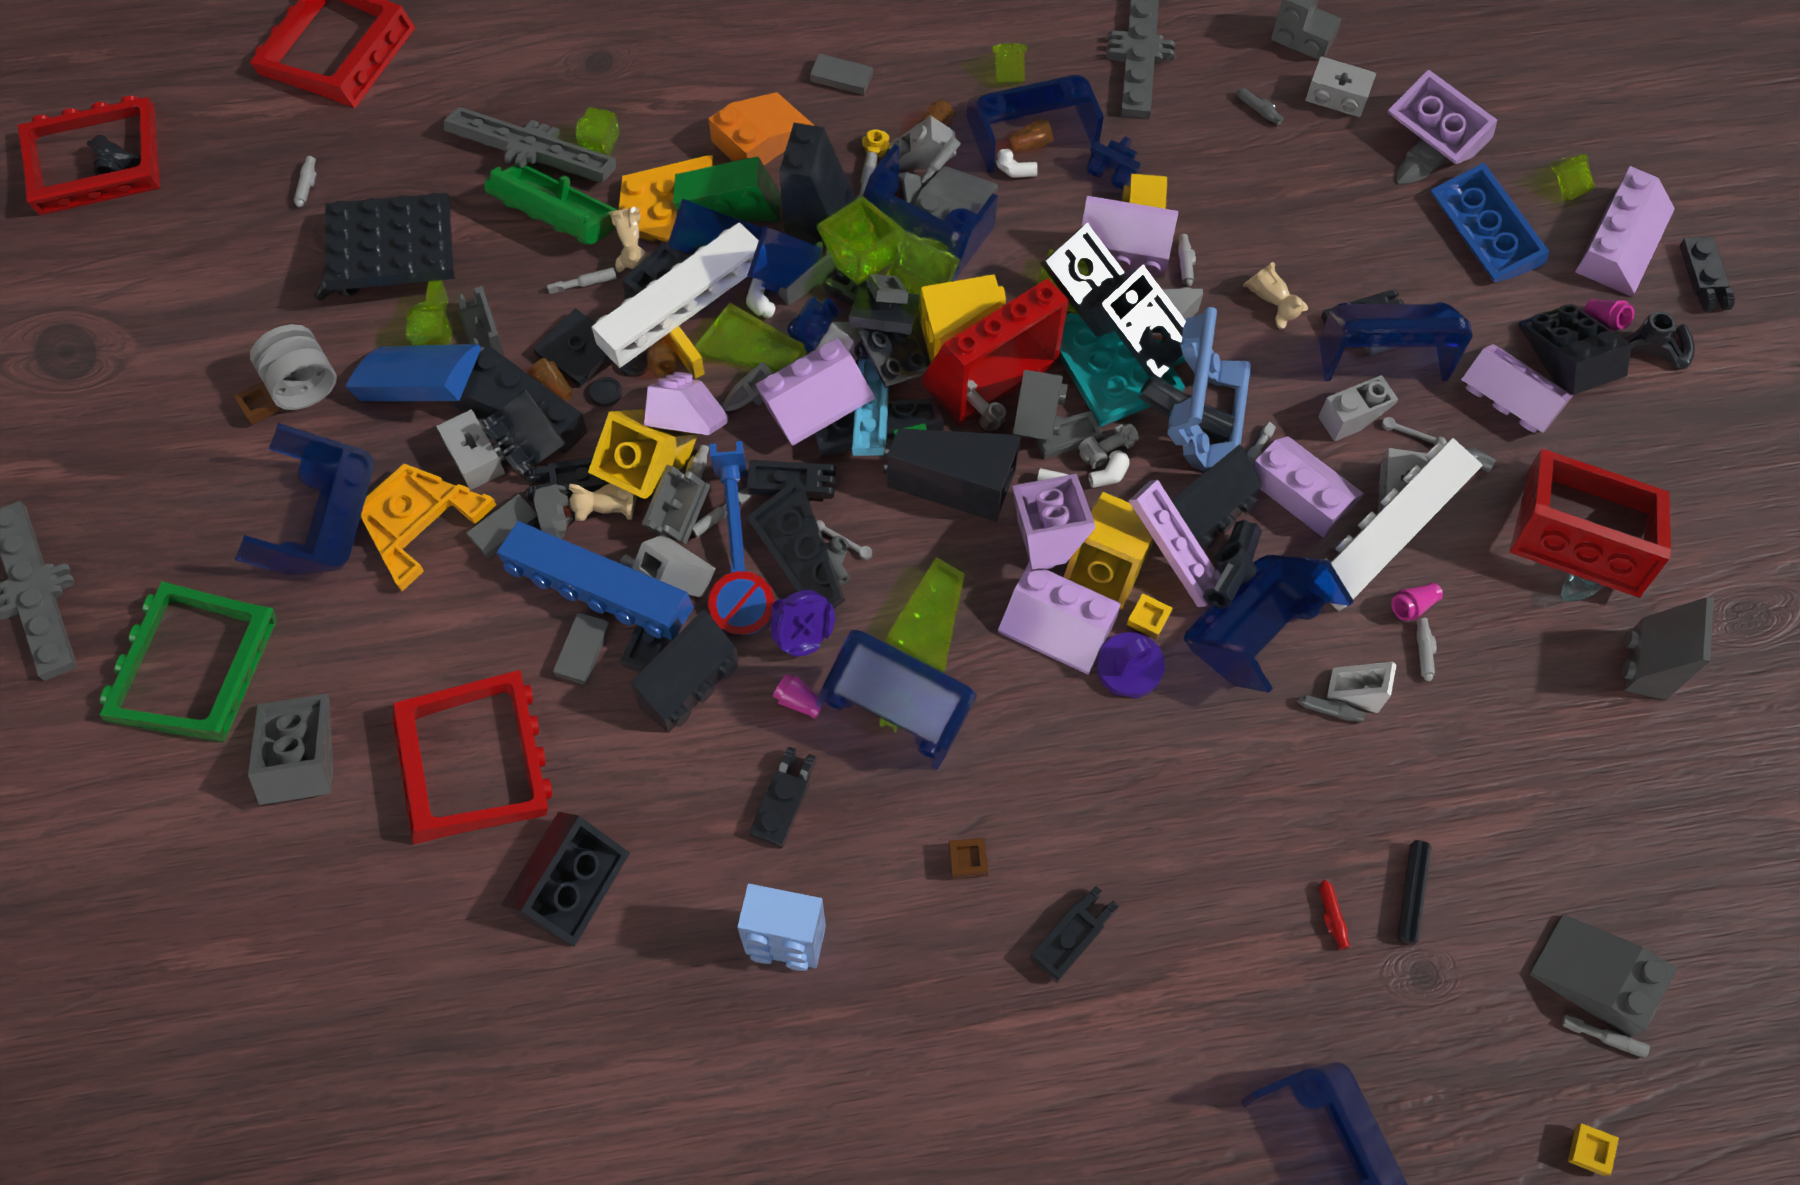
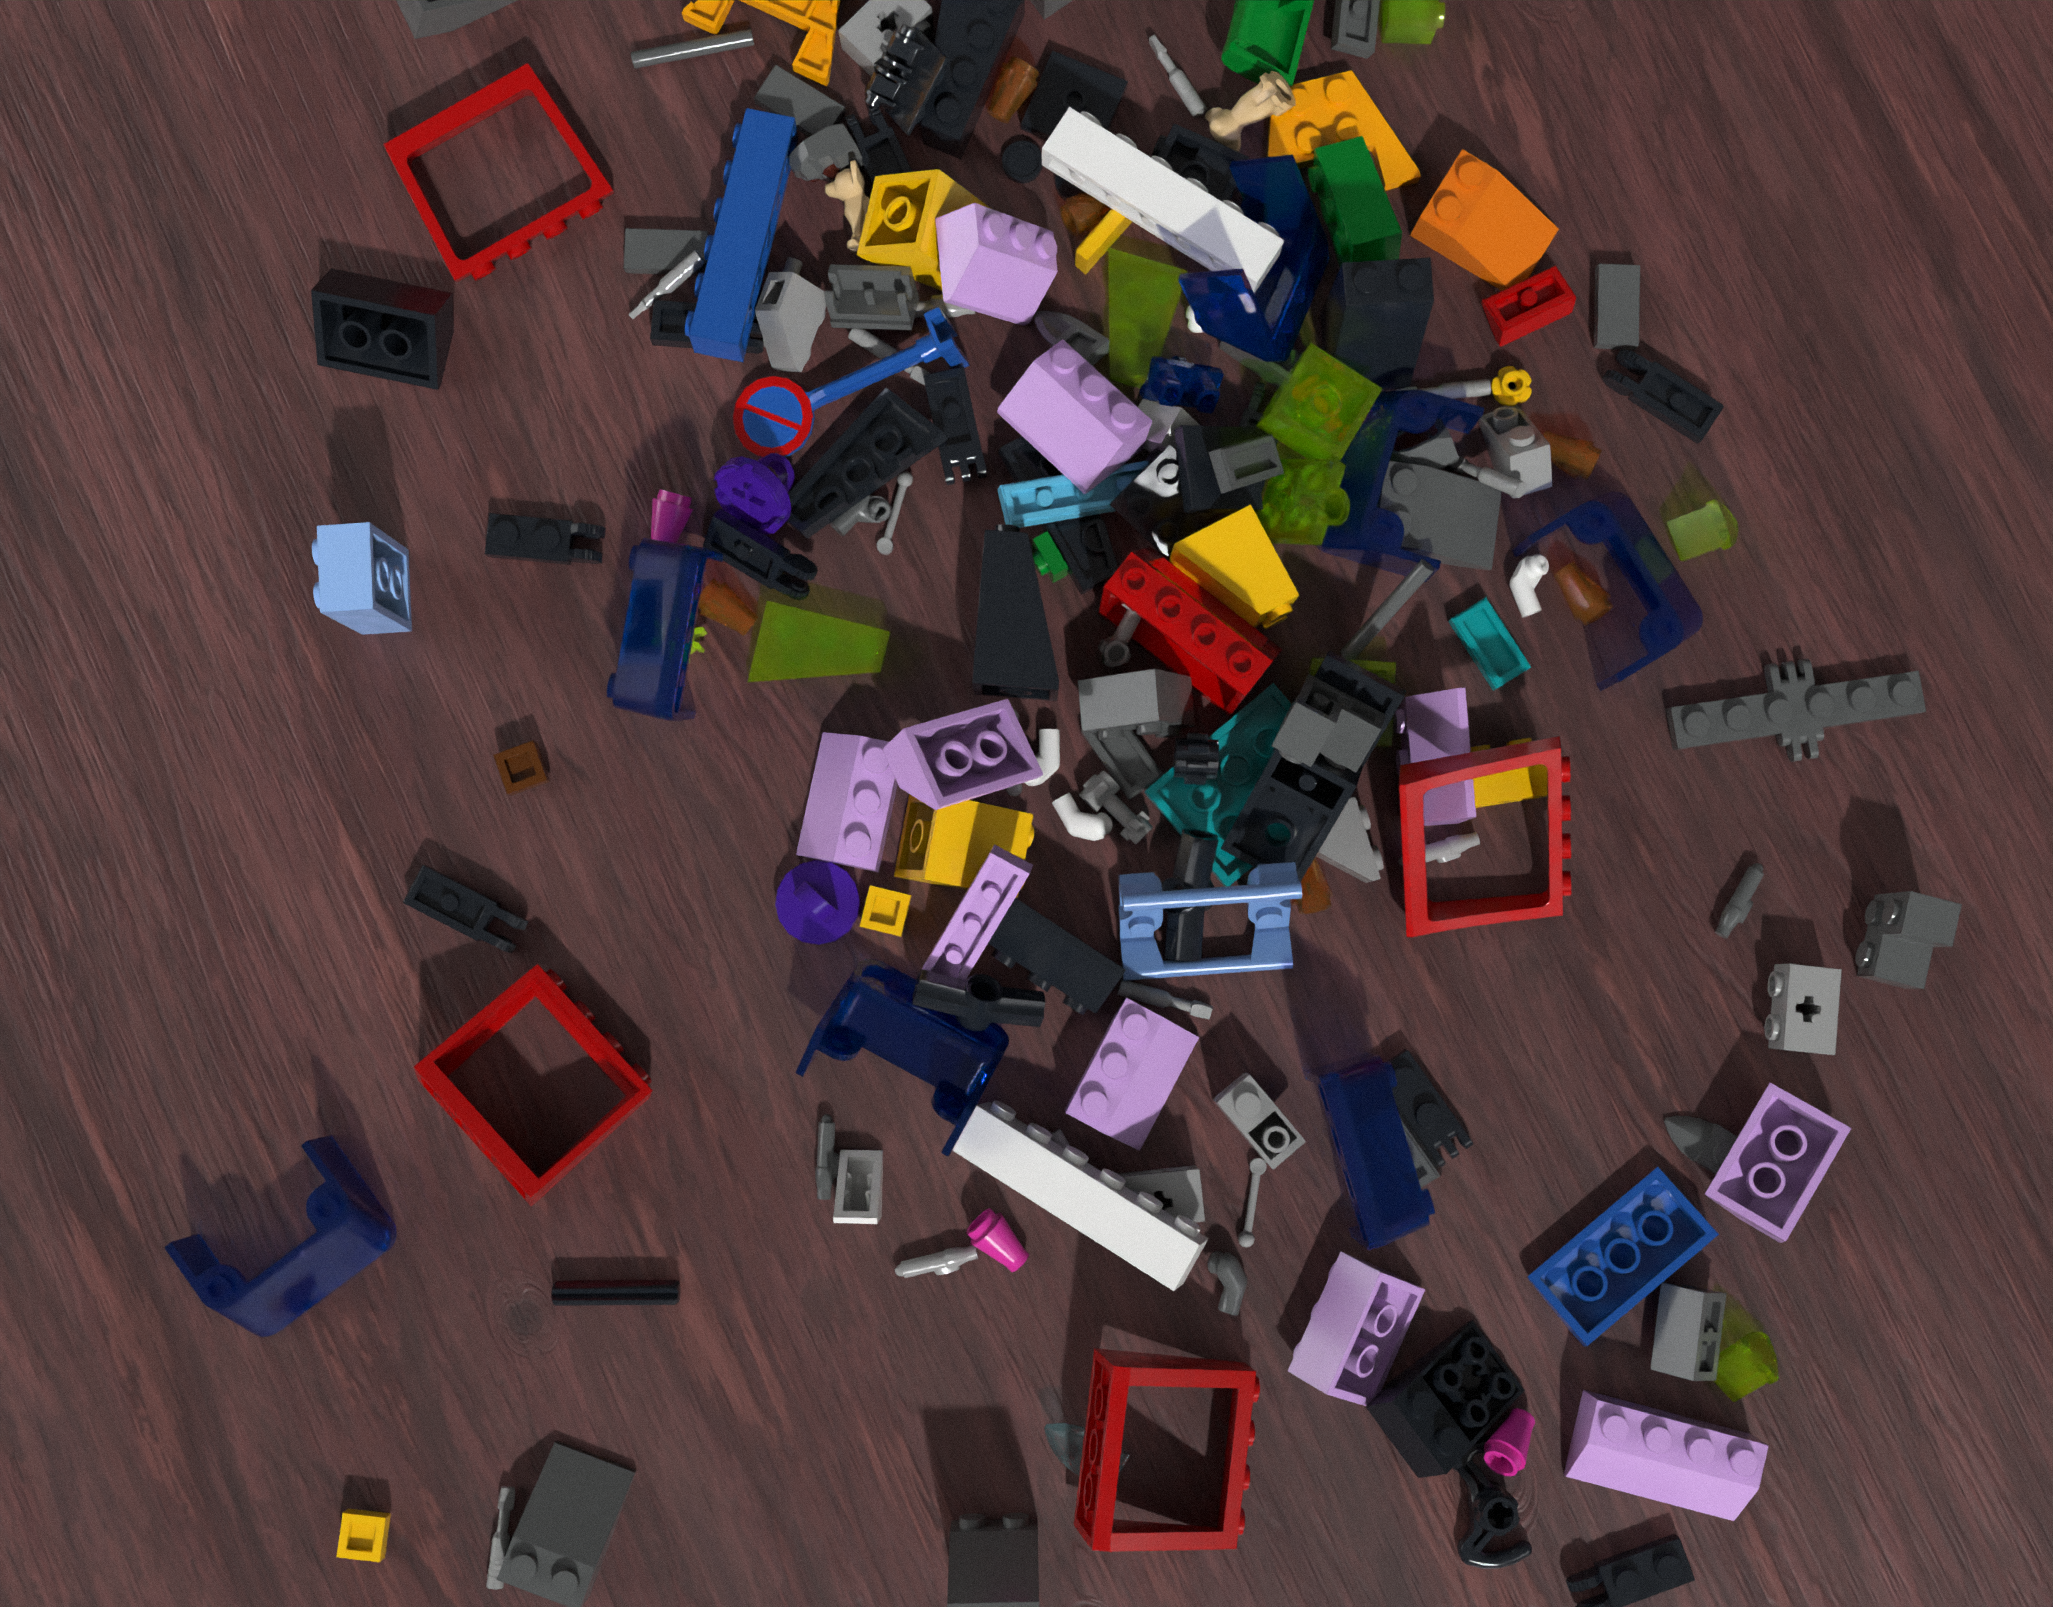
camera: 75 degrees right, 20 degrees up
(426, 591) = (692, 48): none -> dark grey bar
(609, 649) = (671, 281): none -> light grey piece
(685, 672) = (653, 379): black slope -> none
(823, 112) = (1528, 305): none -> red slope
(826, 649) = (759, 556): none -> black hinge
(910, 62) = (1665, 395): none -> black hinge
(1014, 240) = (1387, 610): none -> dark grey bar
(1049, 198) = (1489, 643): none -> teal tile
(1089, 375) = (1196, 758): none -> black gear
(1095, 273) = (1327, 724): none -> dark grey brick
(1117, 157) = (1573, 699): clear blue hips -> none
(1148, 236) = (1418, 777): none -> red windscreen
(1263, 955) = (576, 1020): none -> red windscreen
(1274, 290) = (1420, 974): tan animal -> none
(1333, 915) = (563, 1202): red piece -> none
(1546, 198) = (1688, 1332): none -> dark grey hinge

